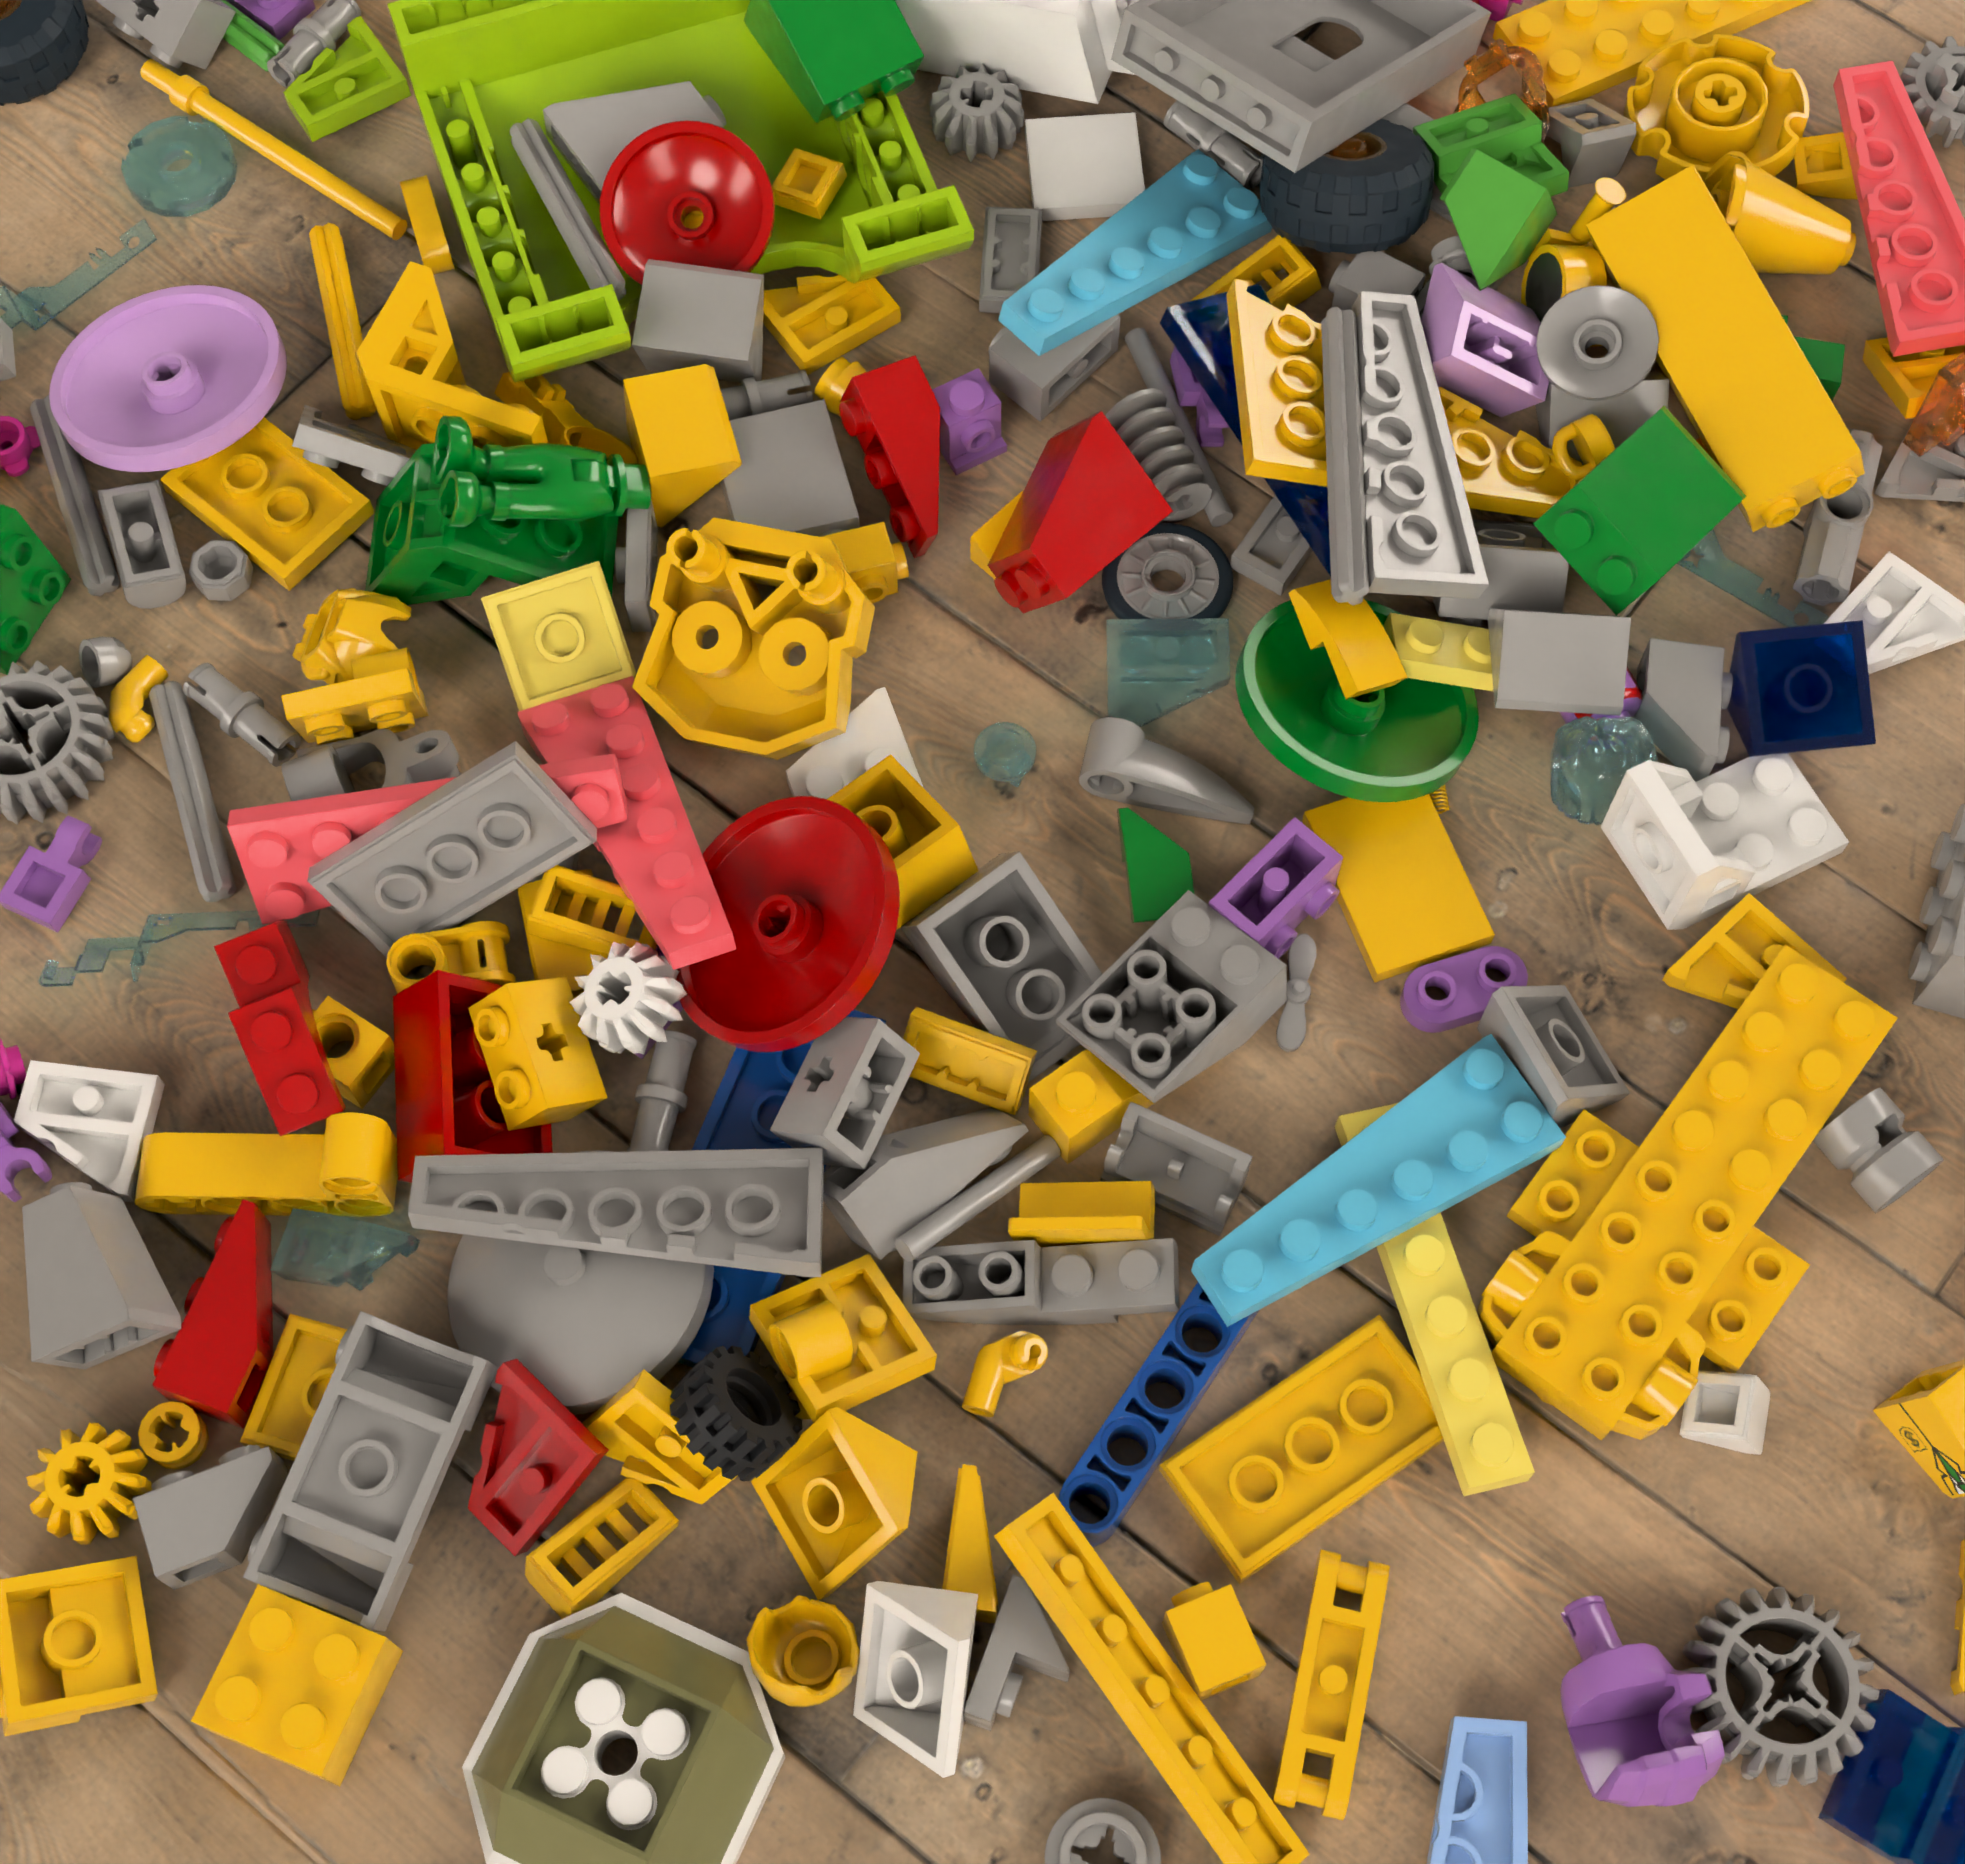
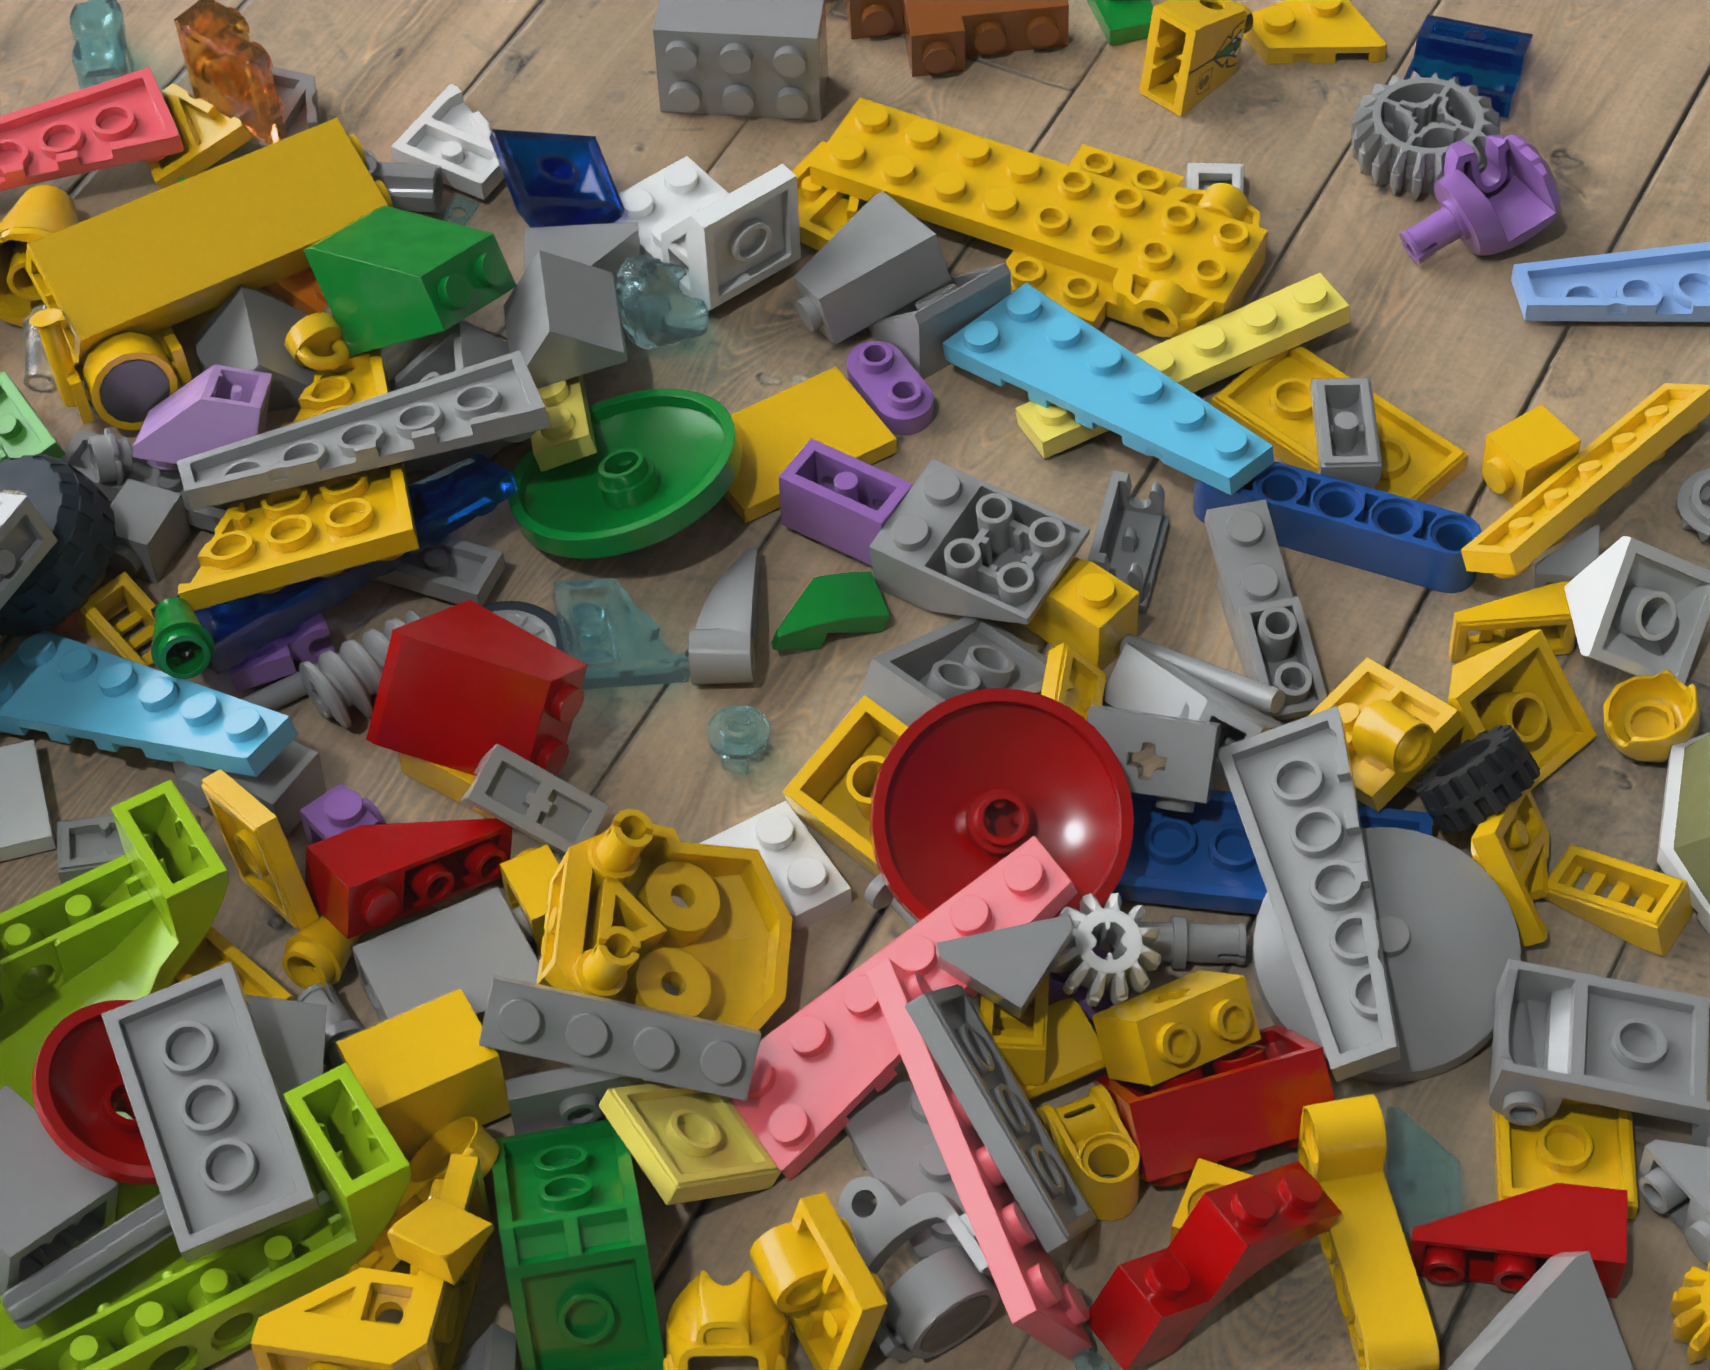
camera: 100 degrees left, 15 degrees down
(166, 1414) = (1672, 1266): yellow bush -> none
(446, 384) = (439, 1238): none -> yellow slope
(530, 1460) = (1572, 932): red wing -> none
(562, 480) = (527, 1116): green piece -> none
(599, 874) = (1007, 962): none -> light grey slope
(636, 241) = (210, 1112): none -> light grey plate
(638, 570) = (619, 1037): none -> light grey plate
(808, 183) = (33, 1024): yellow tile -> none
(941, 325) = (259, 849): none -> yellow plate
(945, 557) = (533, 800): none -> light grey hinge
(1001, 1364) = (1342, 643): yellow arm -> none
(1084, 1212) = (1196, 595): yellow panel -> none
(1183, 278) = (180, 640): none -> green cone
(1271, 1425) = (1346, 430): none -> light grey brick
(1331, 1684) = (1522, 383): yellow plate -> none
(1344, 457) = (386, 470): light grey axle -> none
(1352, 637) = (563, 472): yellow slope -> none
(1496, 215) = (74, 403): bright green slope -> none
(1604, 318) = (222, 305): light grey dish -> none
(1626, 986) = (869, 270): none -> light grey slope
(1877, 1150) = (979, 101): light grey wheel -> none

